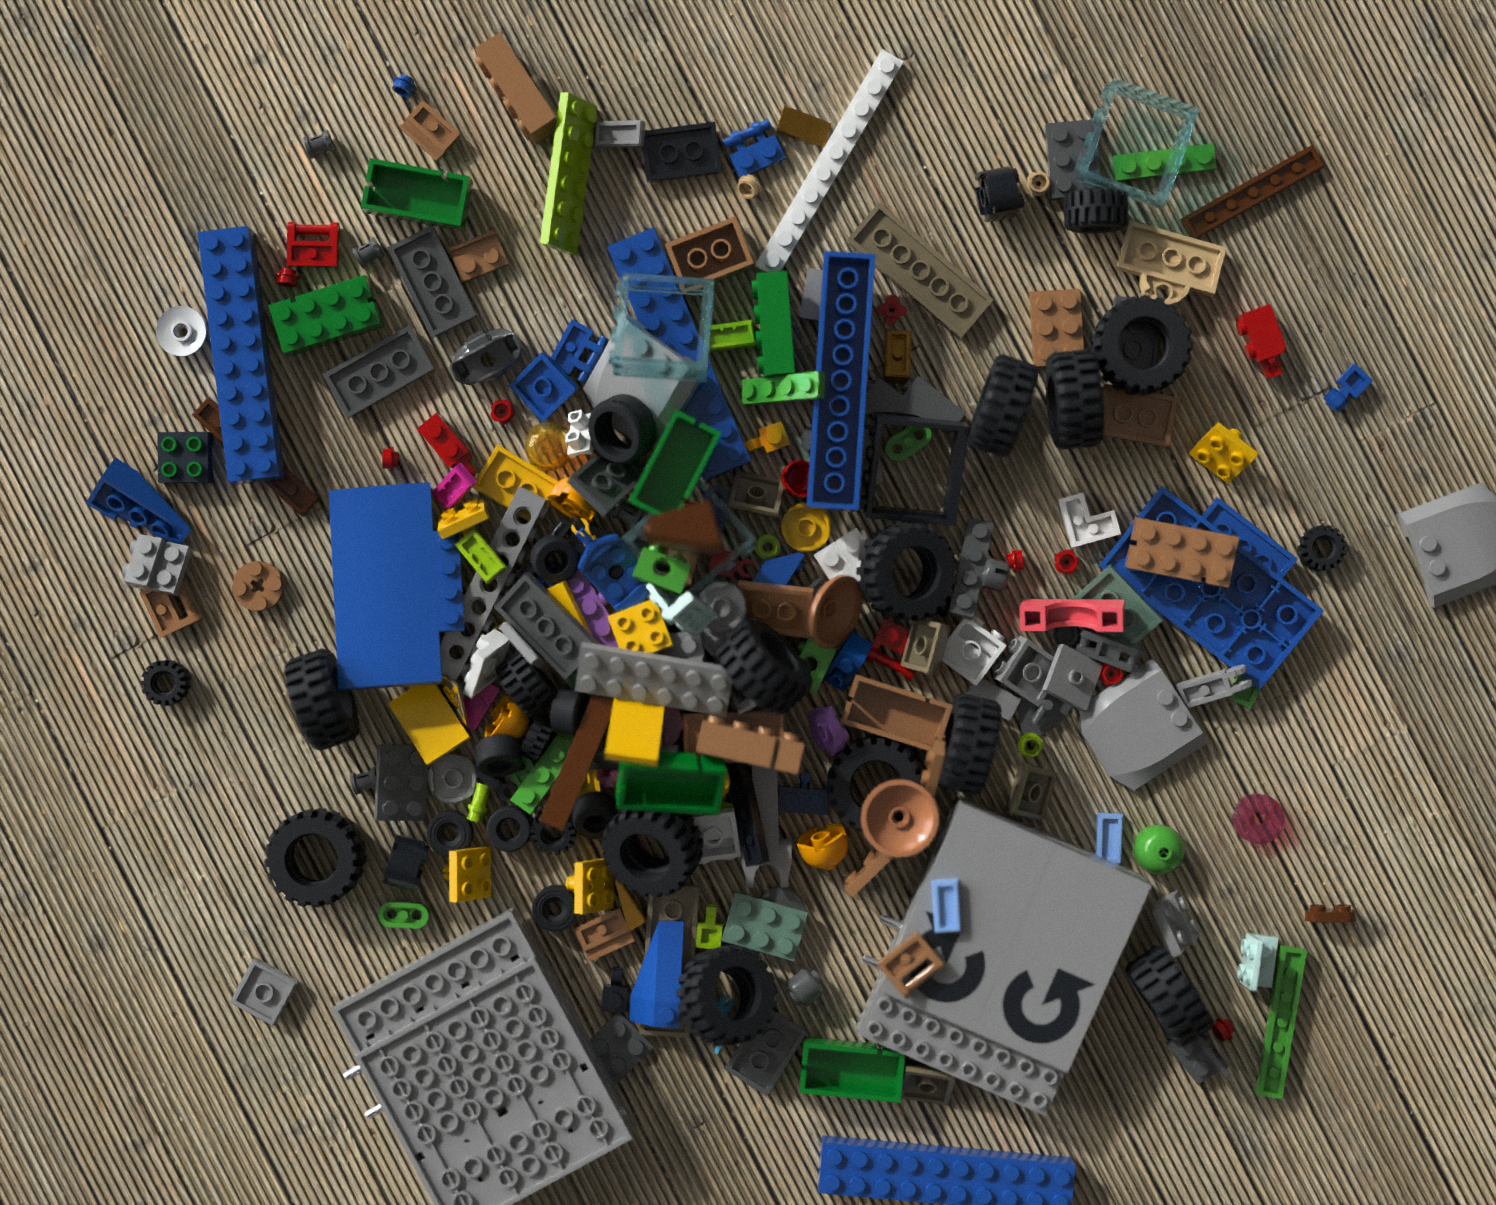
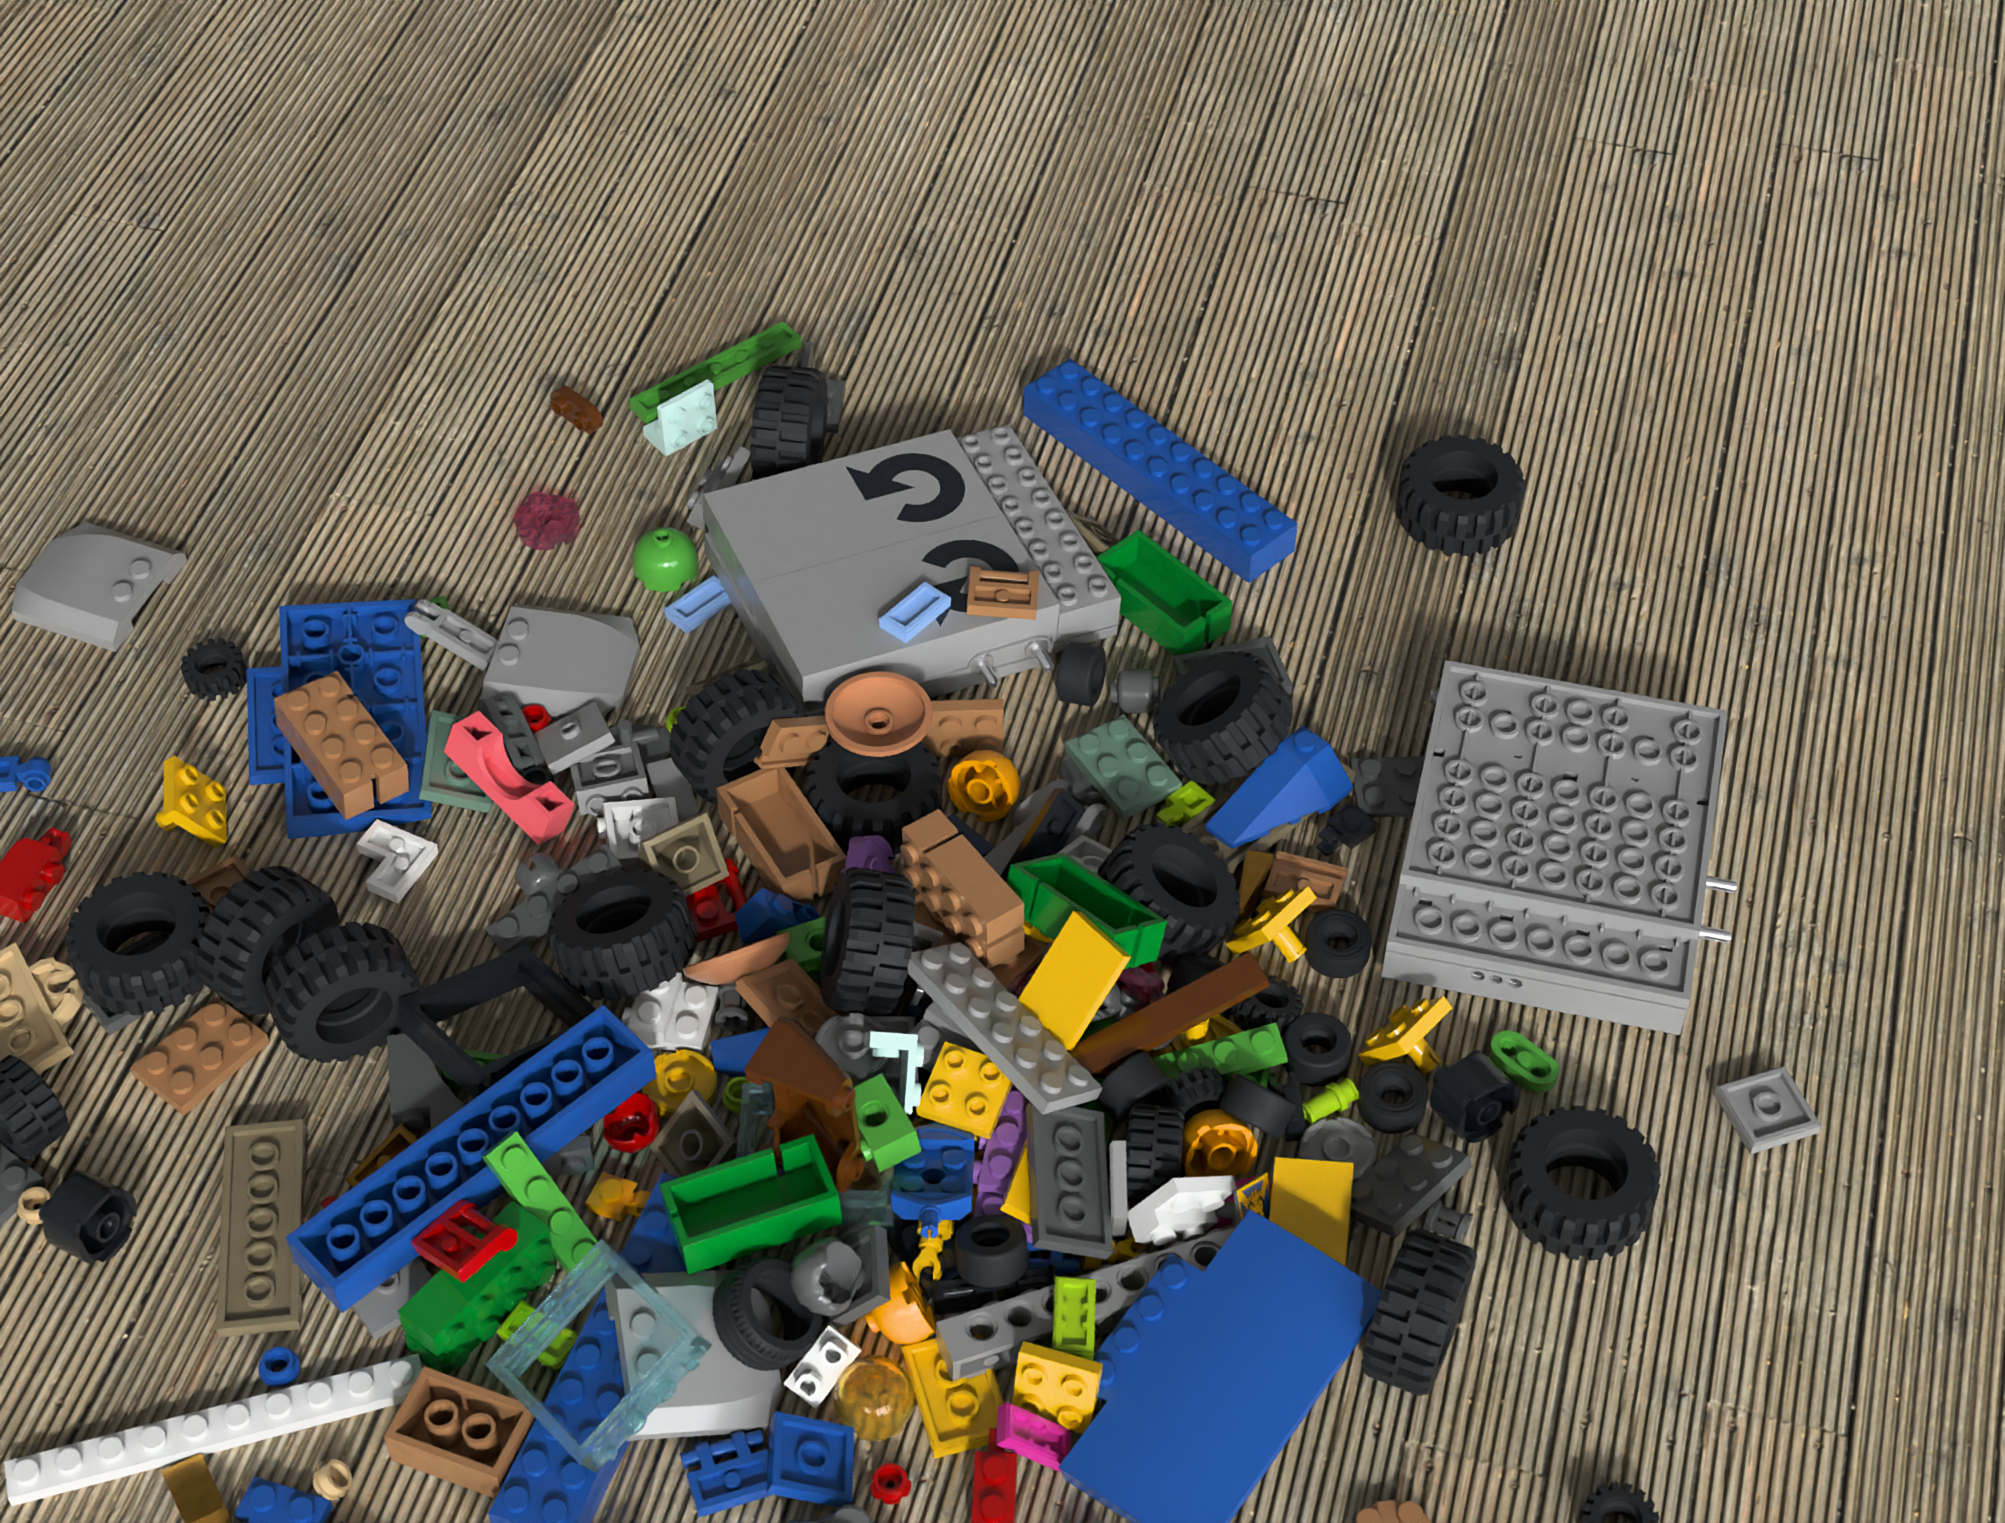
camera: 140 degrees left, 40 degrees down
(604, 462) = (825, 1276): none -> dark grey hair
(791, 320) = (458, 1250): none -> red plate
(833, 206) = (279, 1357): none -> blue plate
(842, 969) = (1081, 673): none -> black tyre
(1015, 560) = (503, 881): red plate -> none
(1073, 562) = (458, 842): red plate -> none

